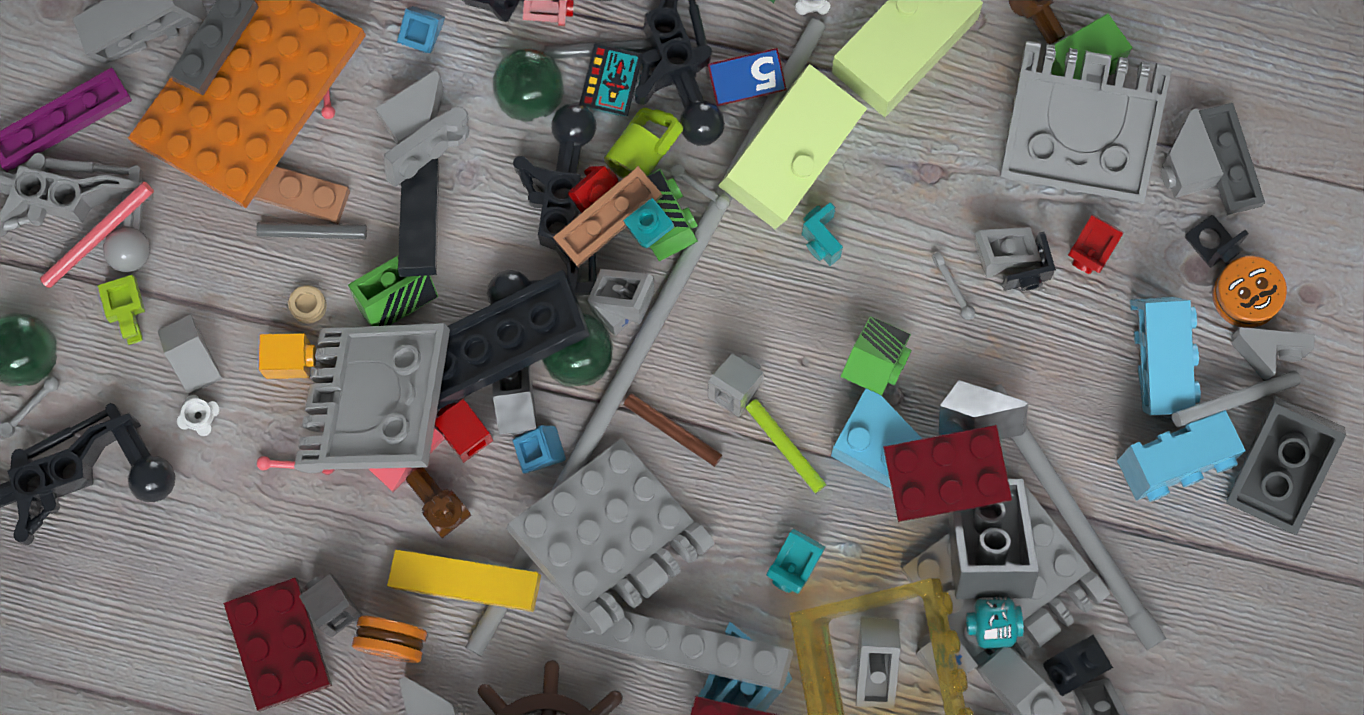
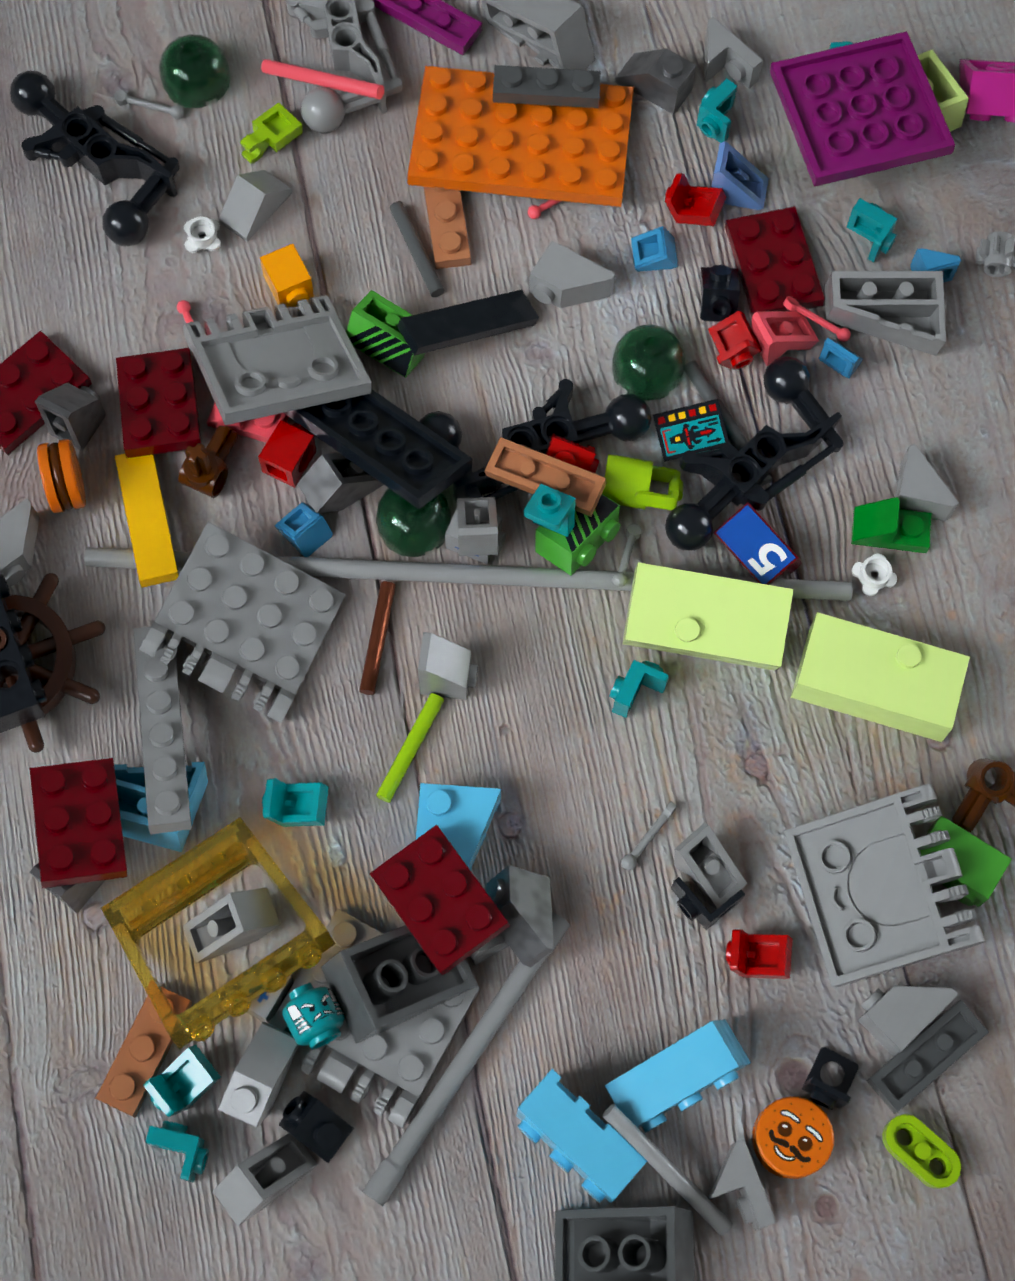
camera: 60 degrees right, 5 degrees down
(307, 304) = (346, 276): tan tile -> none
(353, 524) = (158, 402): none -> dark red plate
(426, 144) = (540, 299): light grey hinge -> none
(877, 356) = (533, 785): bright green brick -> none
(1299, 202) = (922, 1148): none -> lime plate

